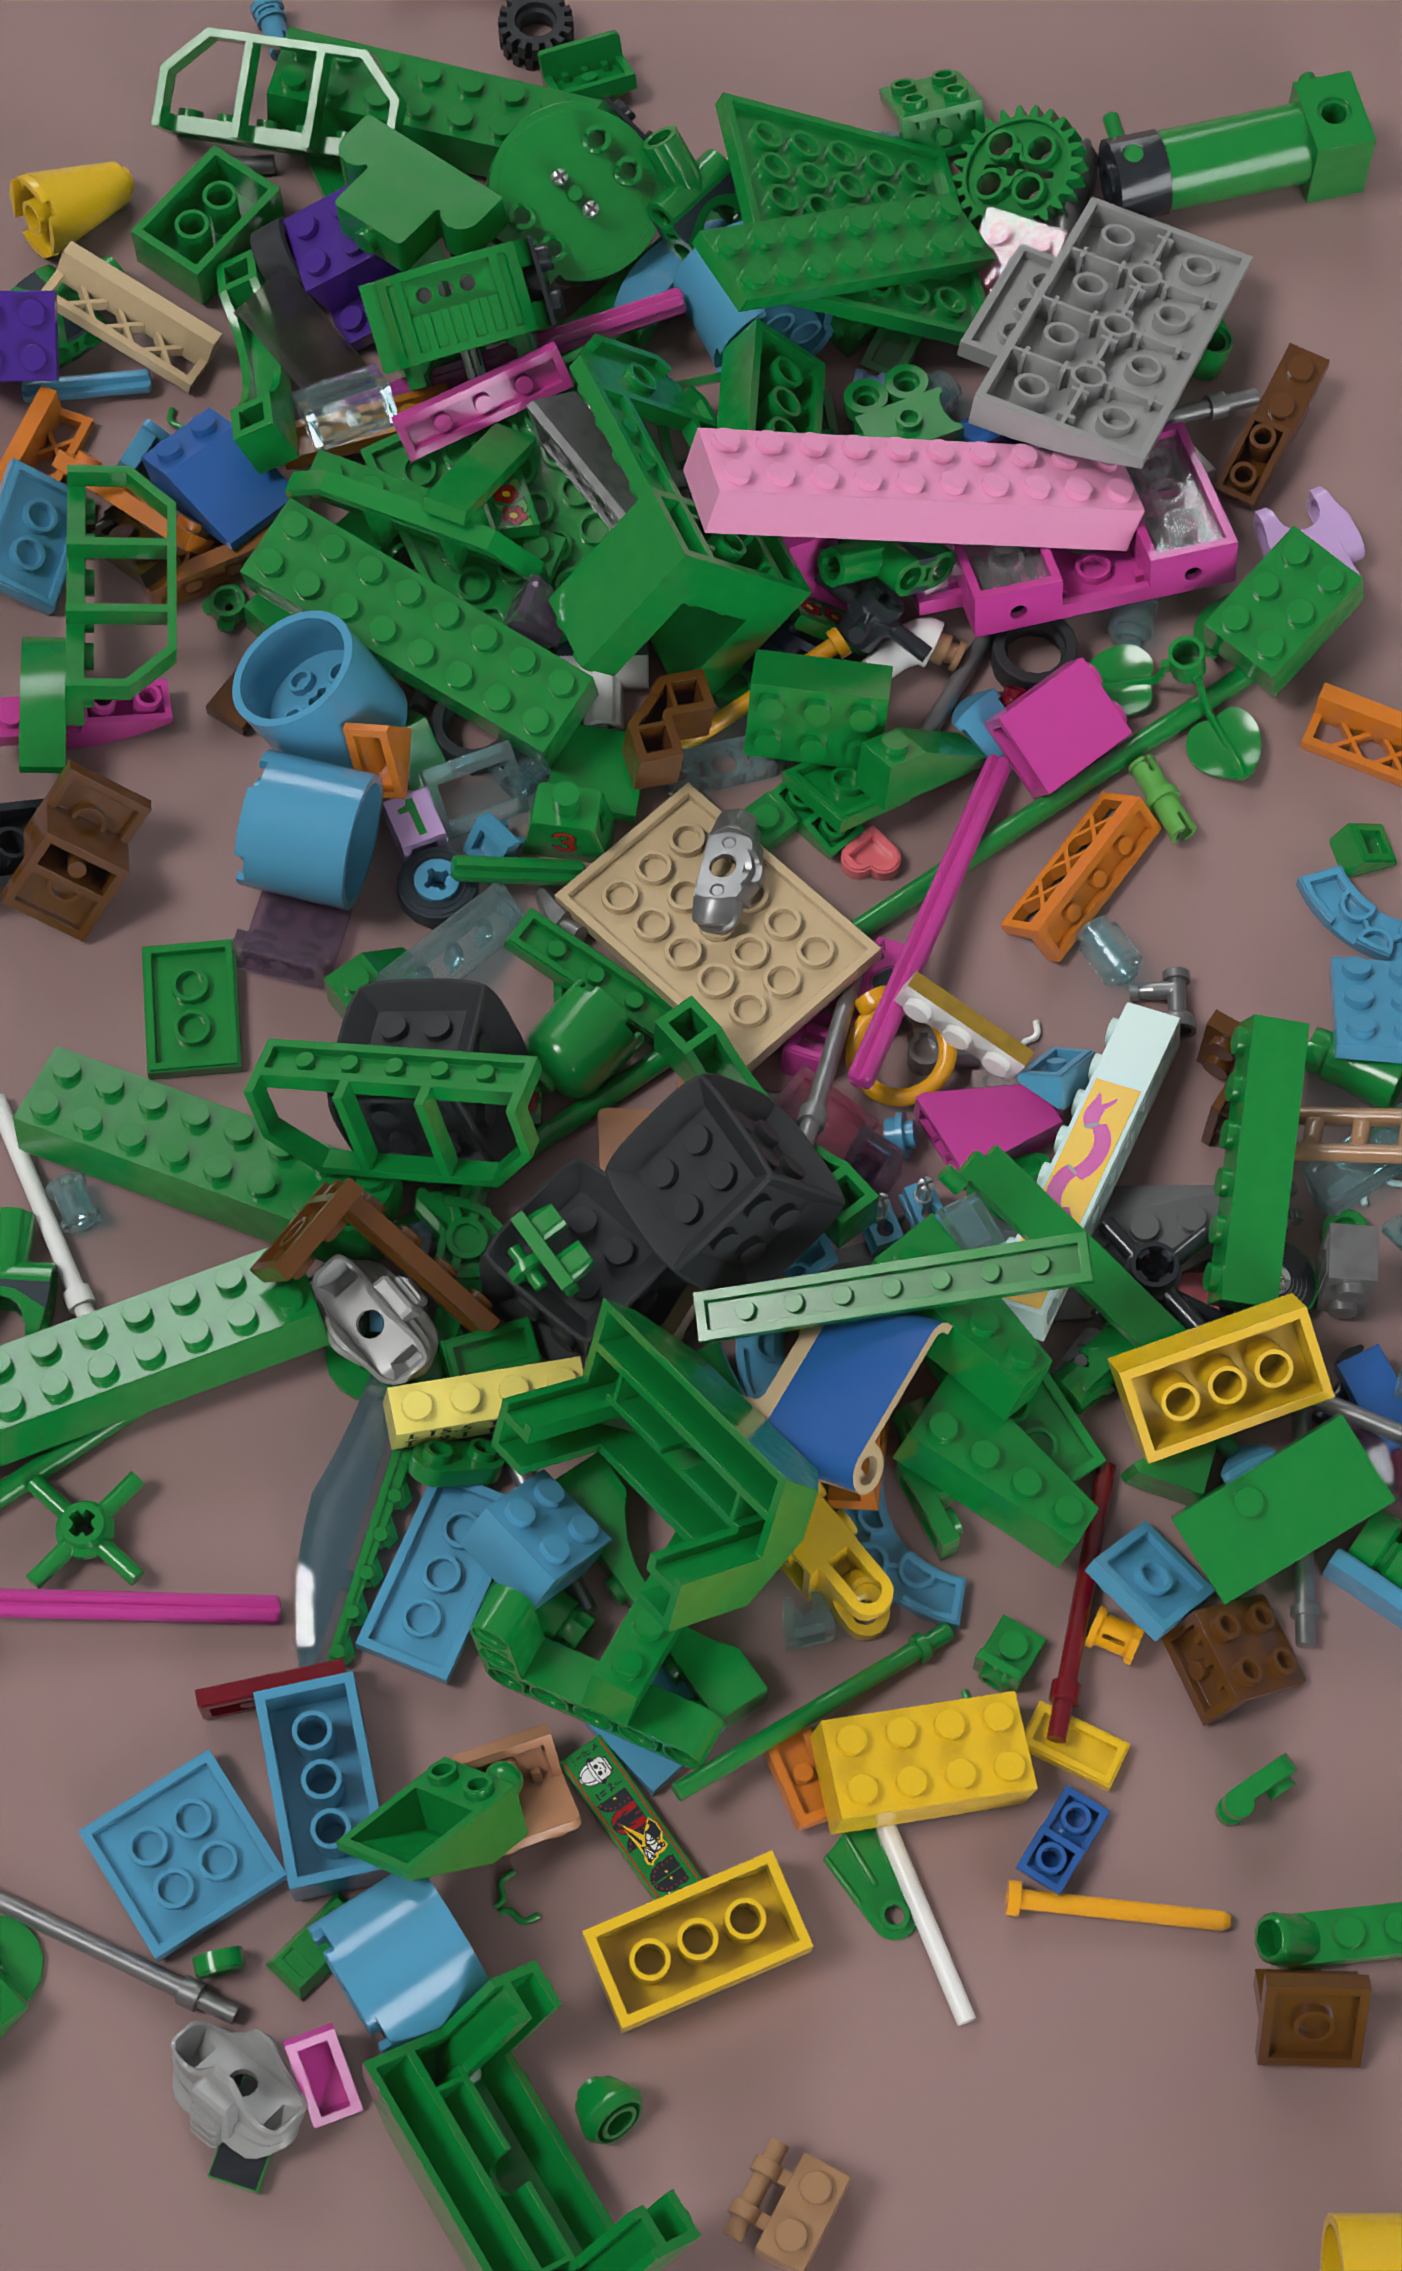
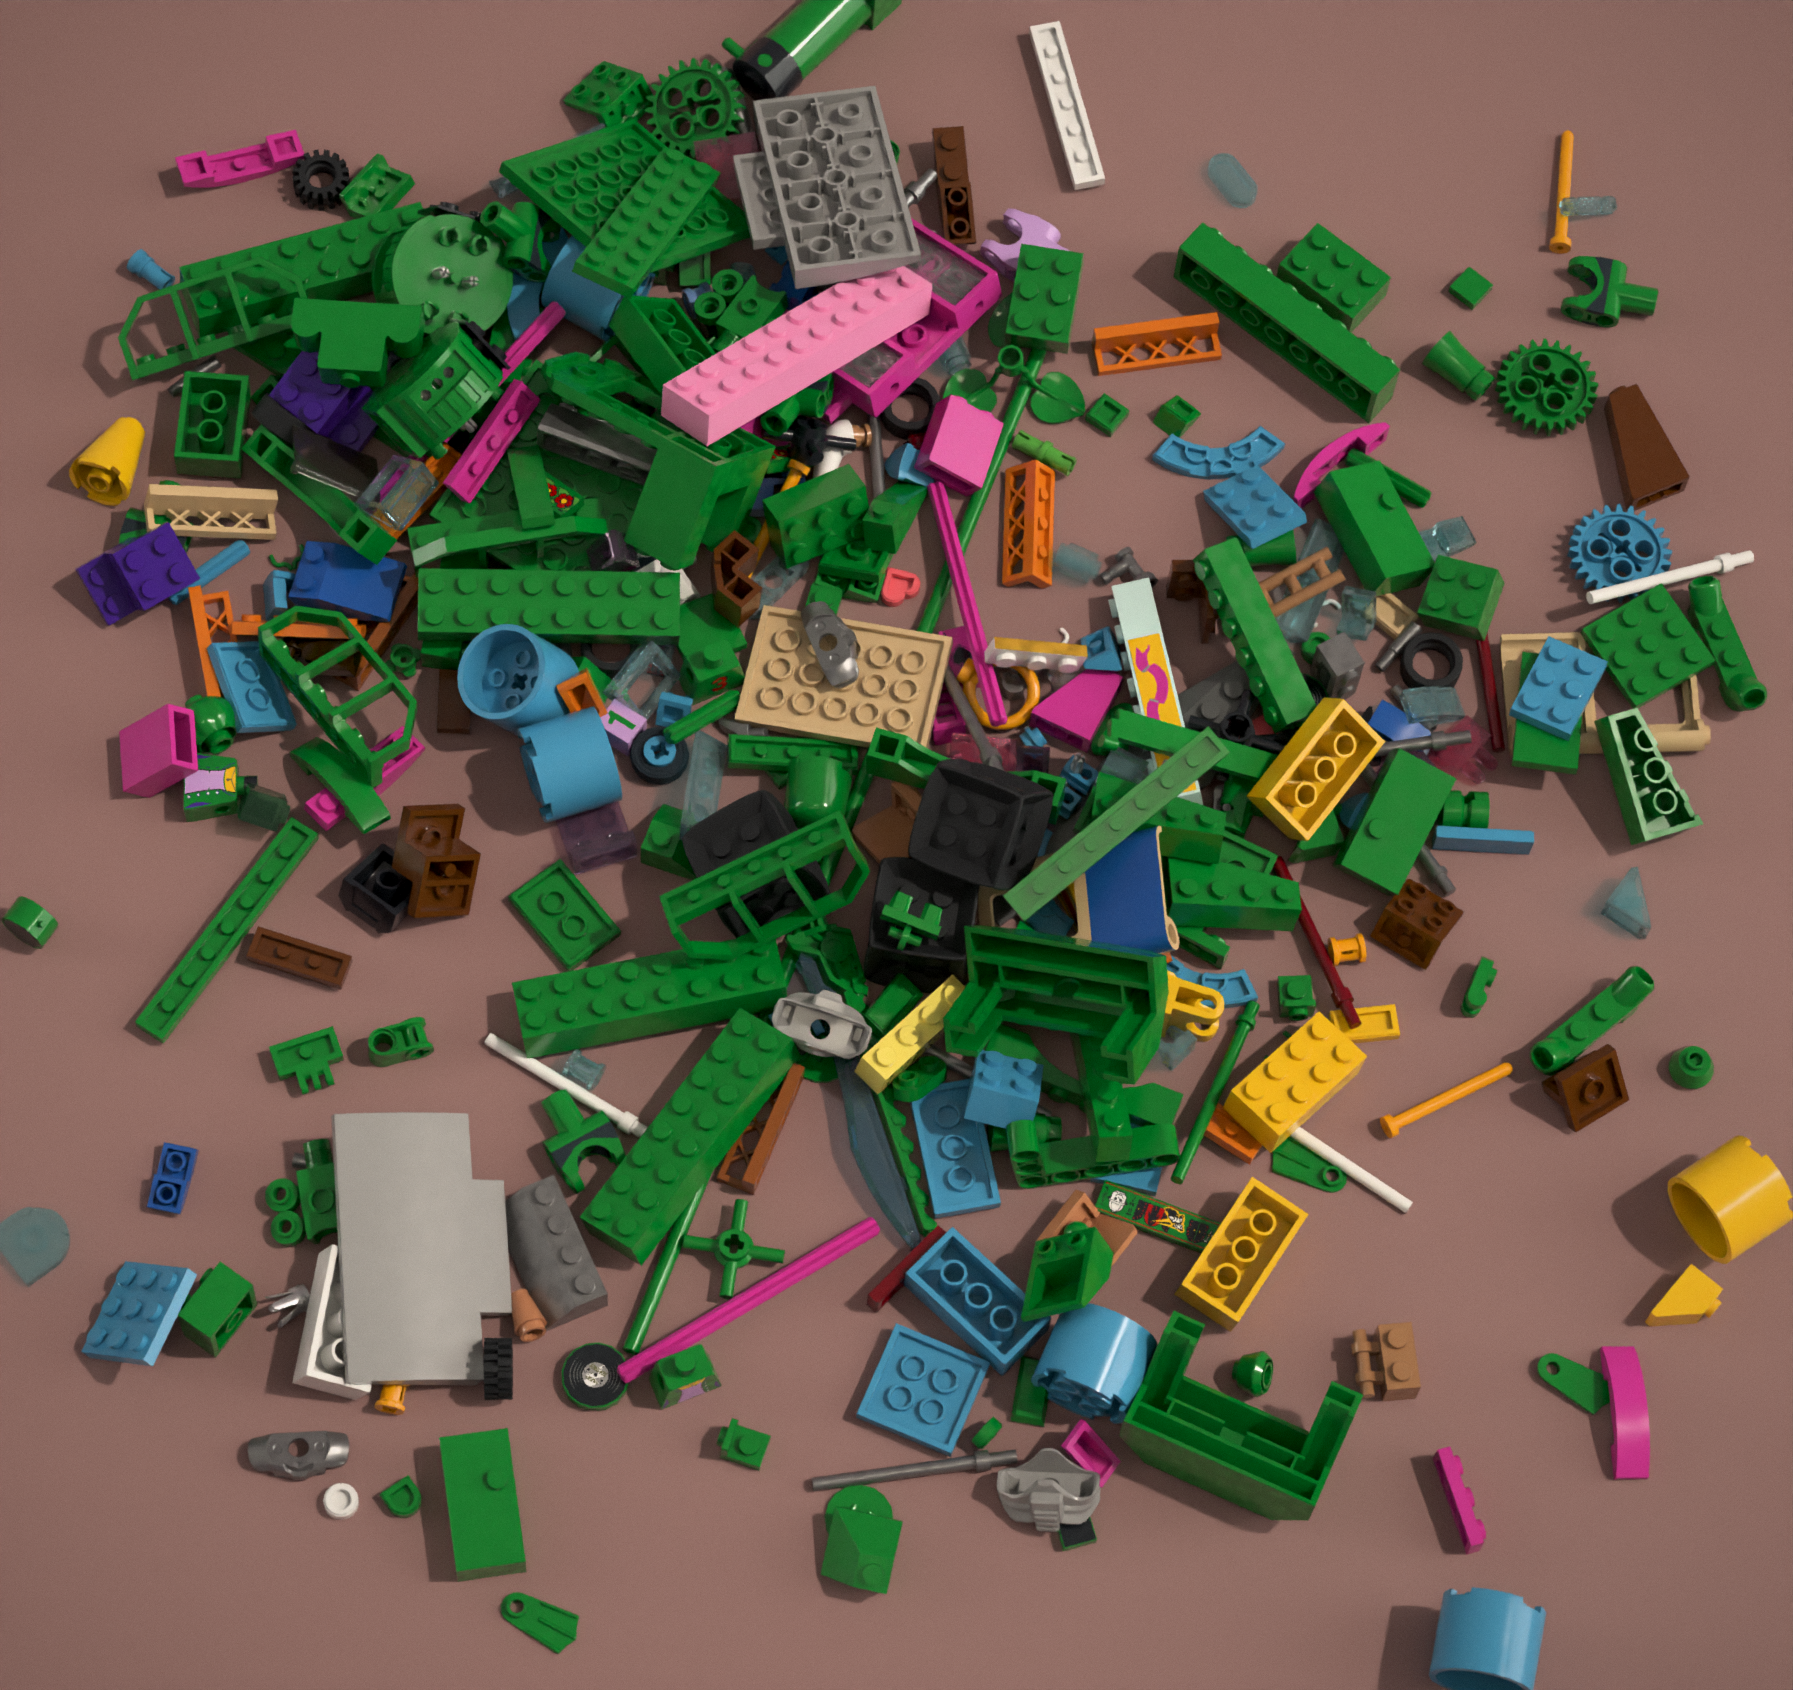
camera: 40 degrees left, 0 degrees up
(230, 1418) = (768, 1137): none -> dark orange fence
(341, 1203) = (764, 978): reddish brown bracket -> none
(508, 1910) = (1114, 1304): green piece -> none
(1062, 1840) = (1394, 1078): blue slope -> none
(1150, 1580) = (1347, 907): dark azure plate -> none
(1275, 798) = (1107, 415): none -> green tile

